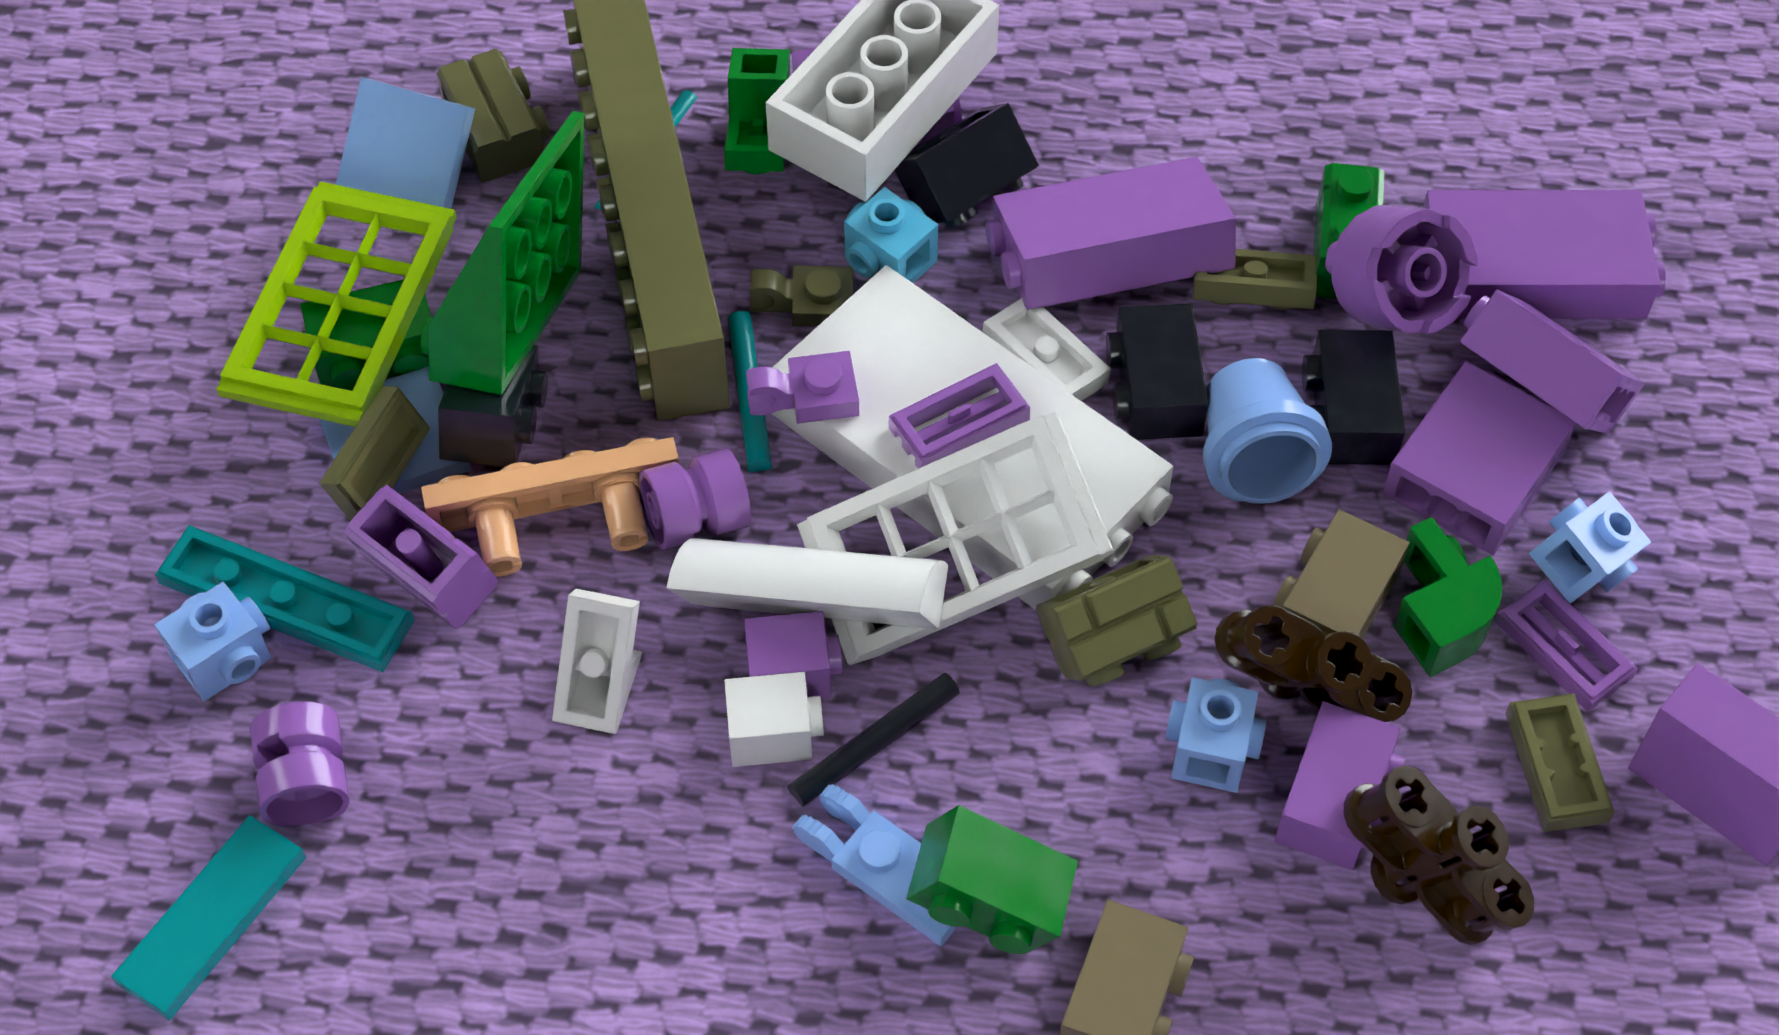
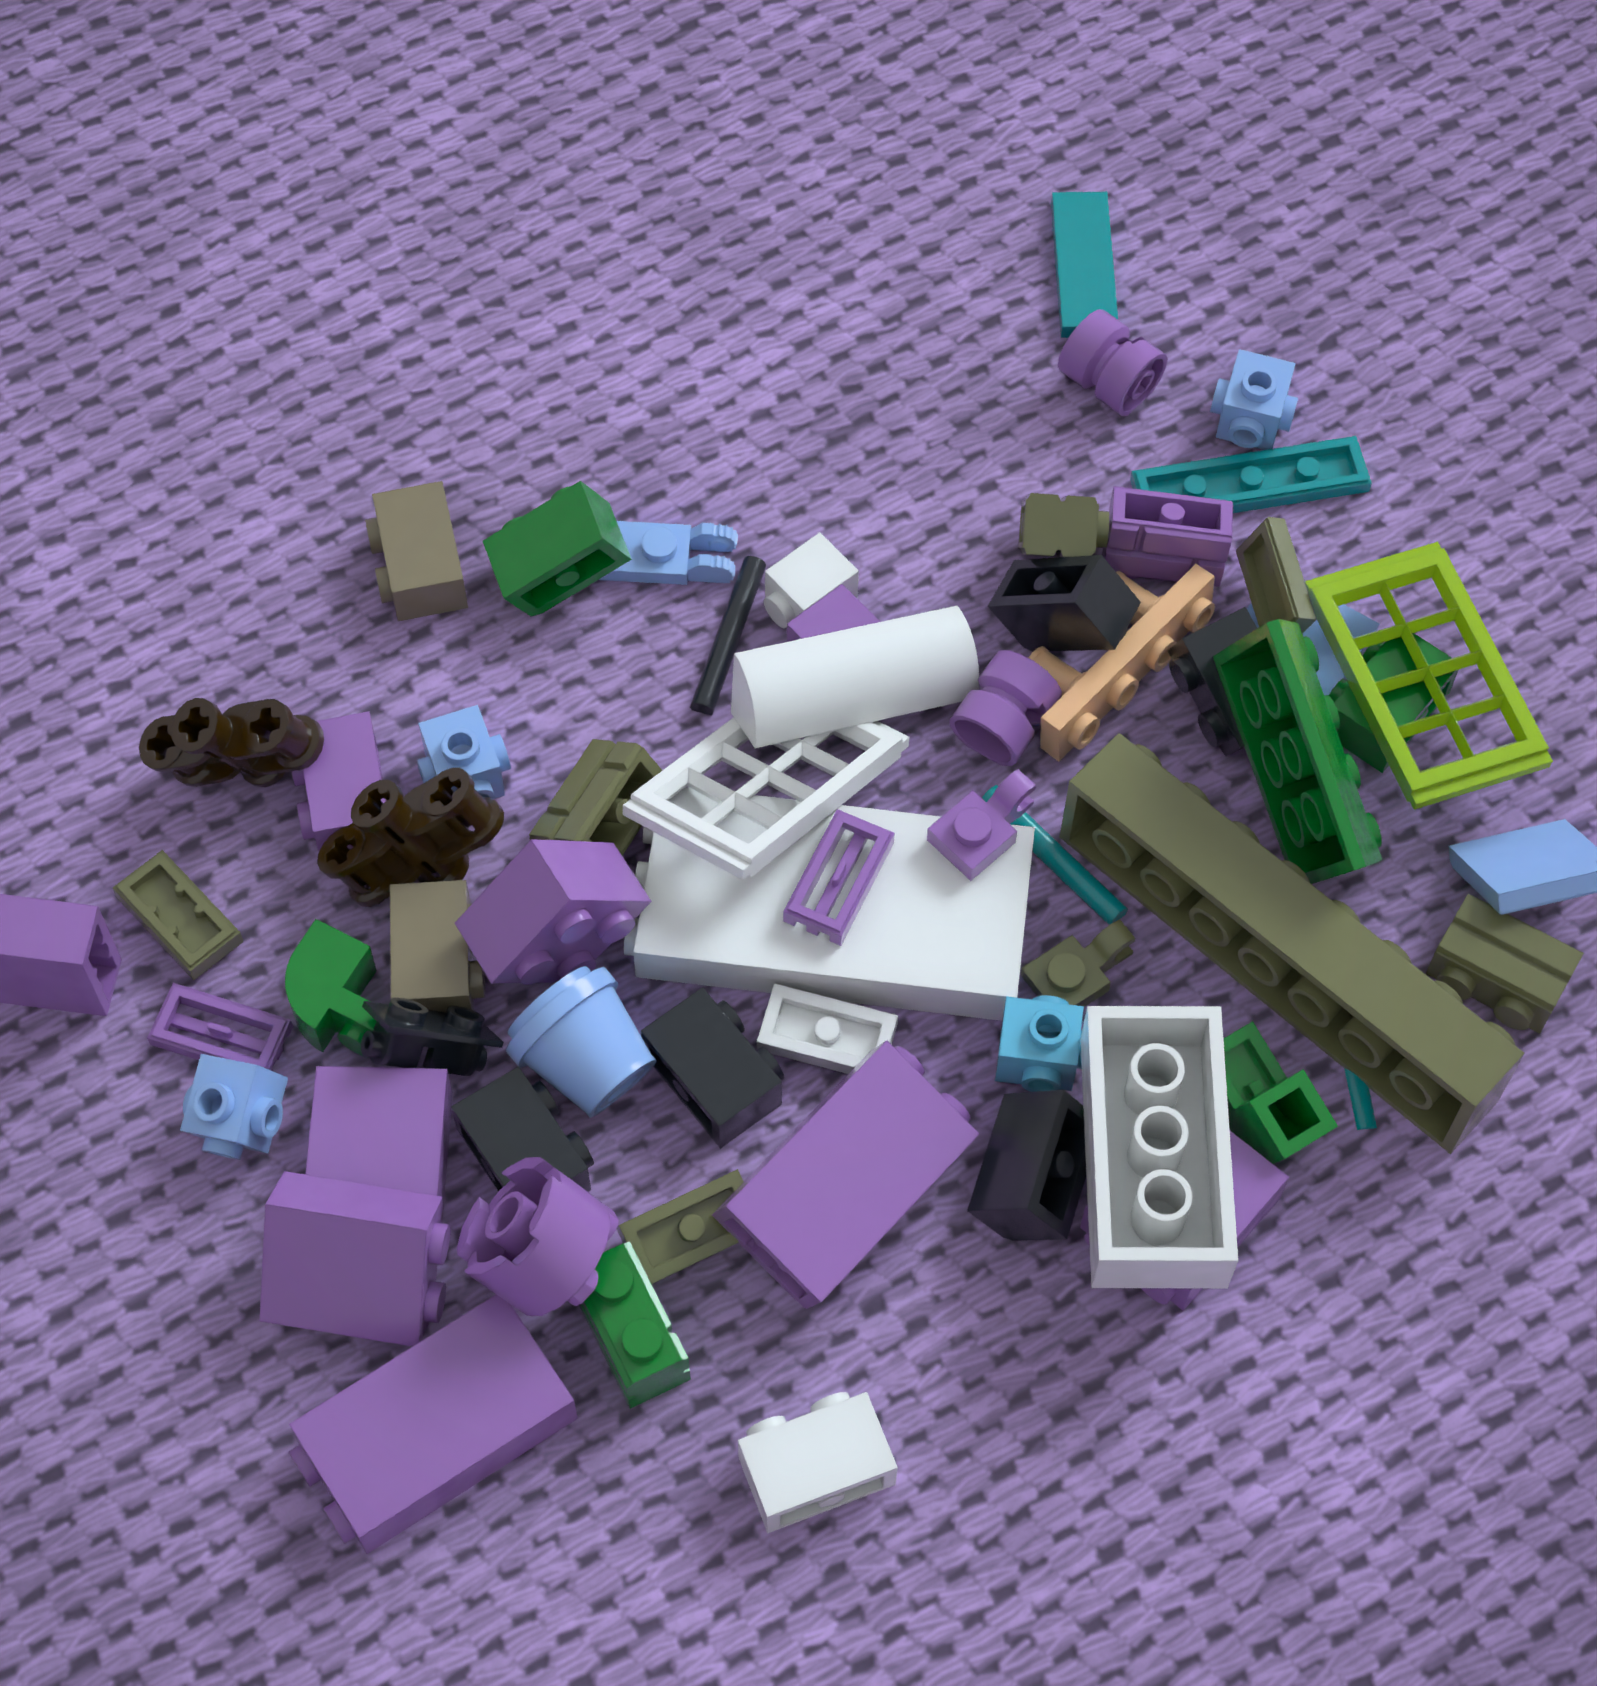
camera: 145 degrees right, 5 degrees up
(512, 604) = (1061, 526): none -> olive brick
(574, 530) = (1065, 603): none -> black brick
(596, 660) = (971, 555): white slope -> none
(1229, 510) = (552, 911): none -> medium lavender brick
(1264, 90) = (816, 1459): none -> white brick
(1394, 499) = (452, 1037): none -> black hinge

